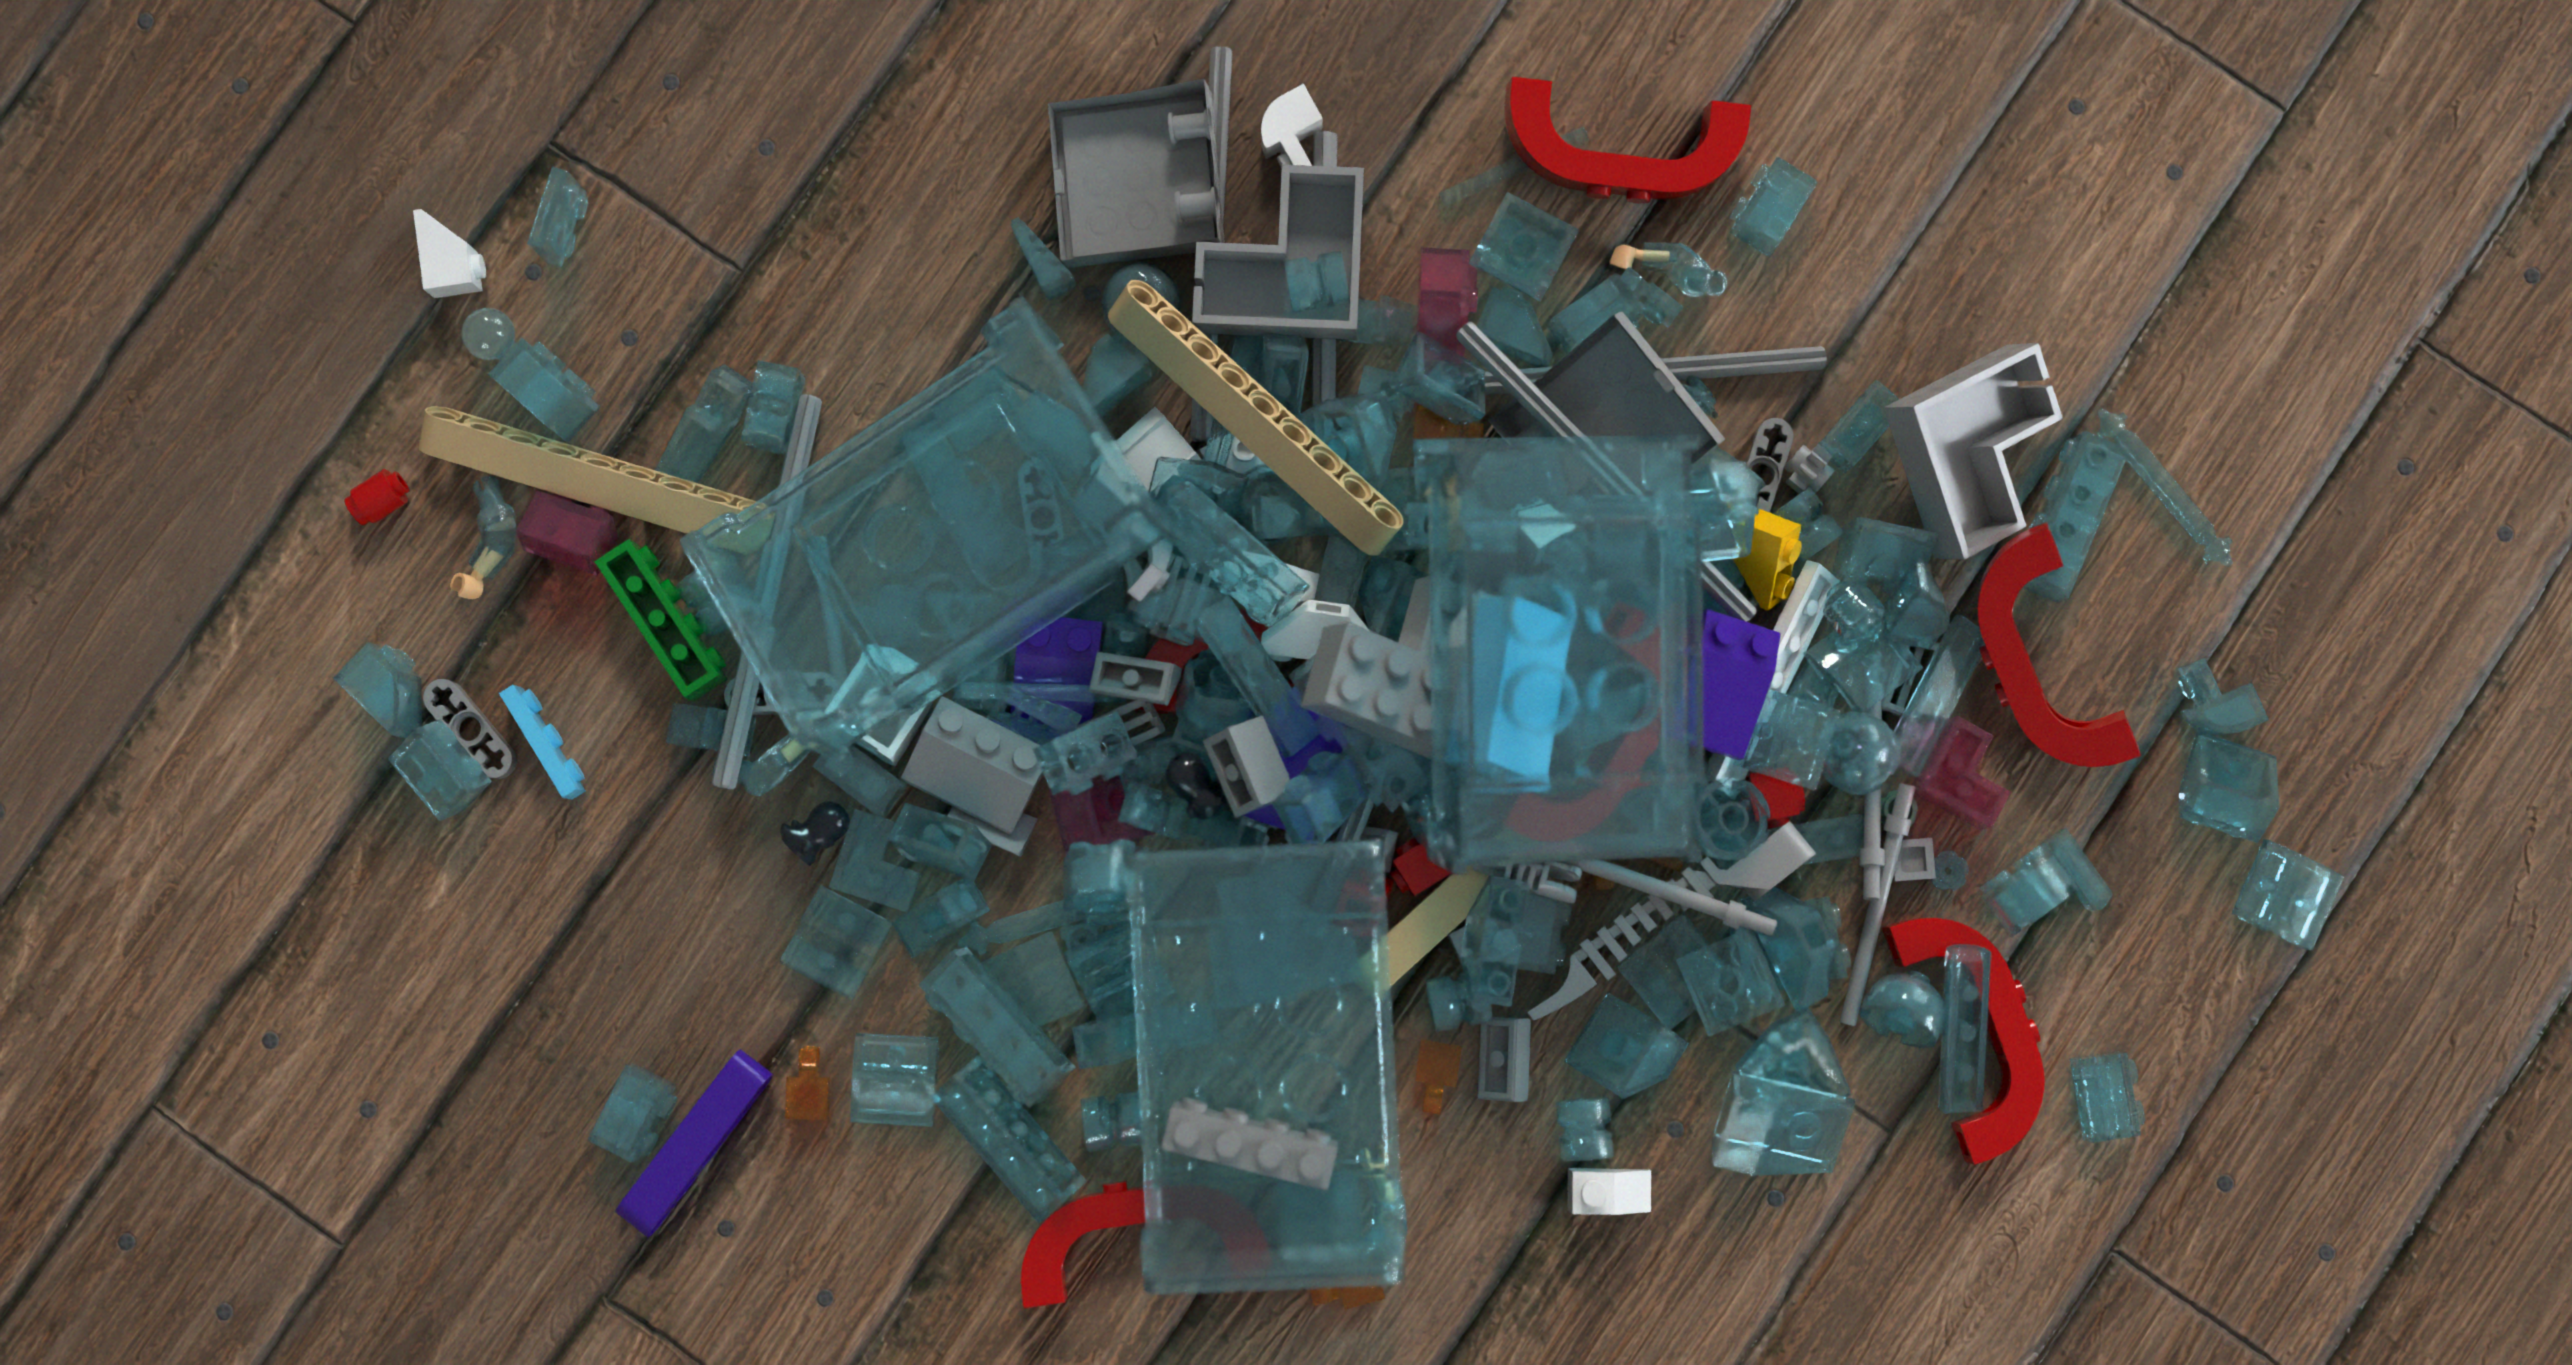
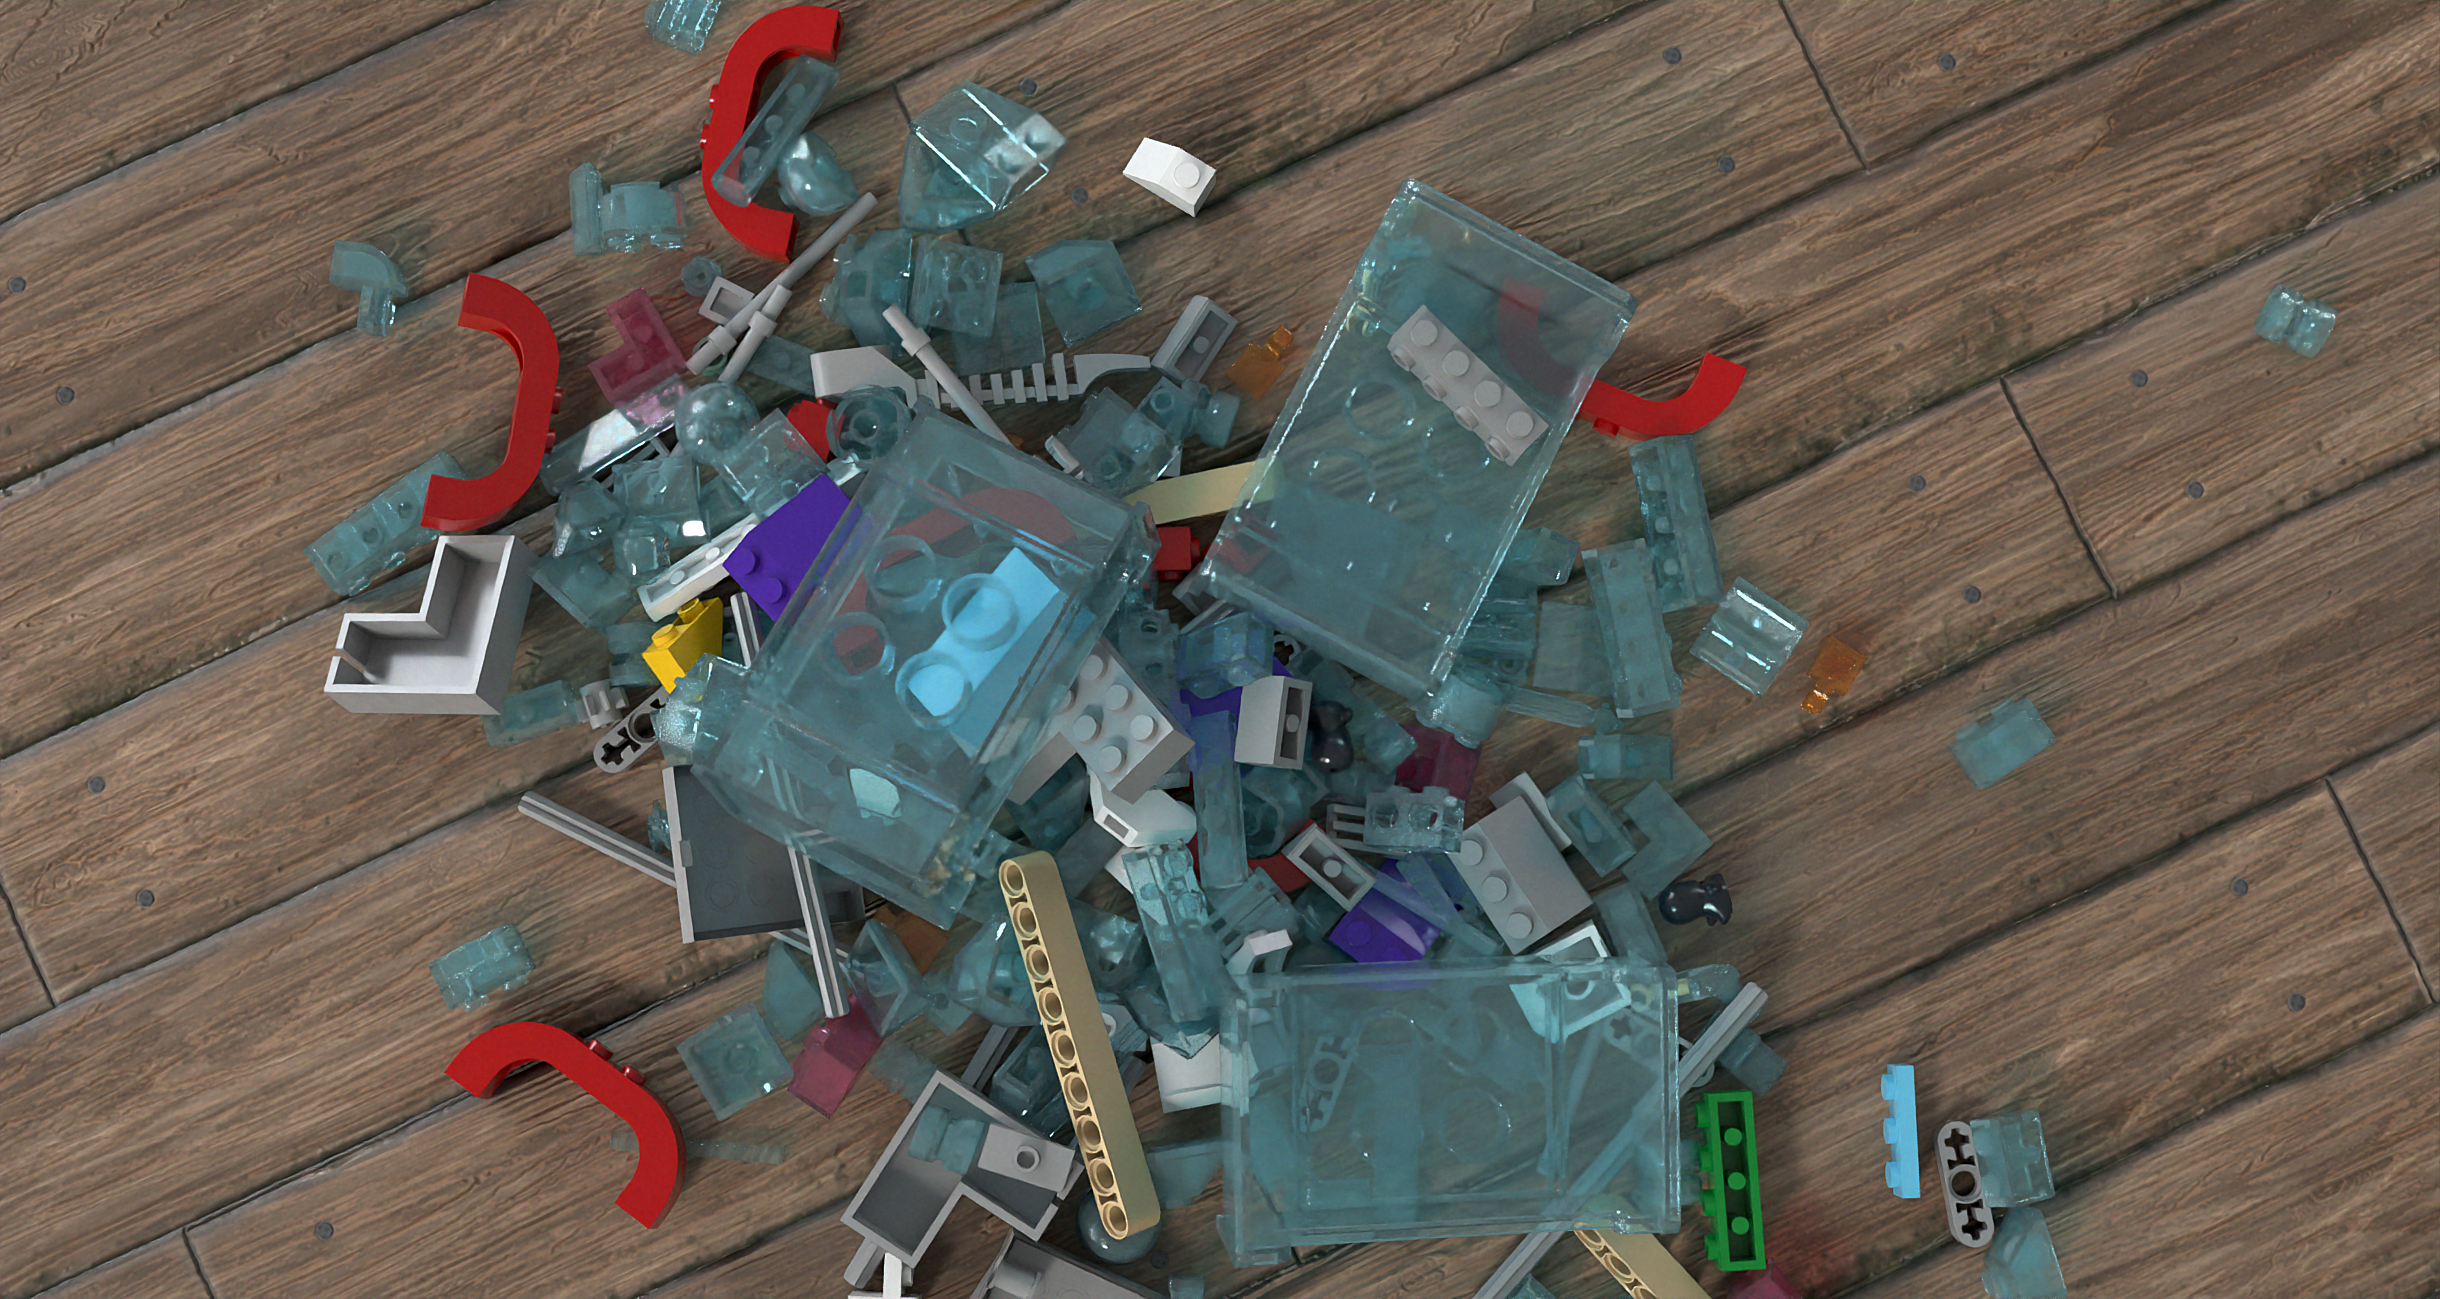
camera: 145 degrees left, 0 degrees up
(694, 1143) = (1960, 684): dark purple beam -> none
(836, 943) = (1733, 790): clear light blue slope -> none
(1112, 1121) = (1589, 488): clear light blue wheel -> none
(1243, 301) = (1026, 1158): none -> light grey plate
(1584, 1129) = (1161, 236): clear light blue wheel -> none
(1592, 310) = (708, 961): clear light blue brick -> none
(1656, 304) = (646, 937): clear light blue plate -> none
(1678, 262) = (601, 963): clear light blue arm -> none
(2166, 488) = (292, 501): clear light blue wheel -> none
(2229, 787) = (407, 204): clear light blue slope -> none
(2288, 894) = (417, 83): clear light blue slope -> none

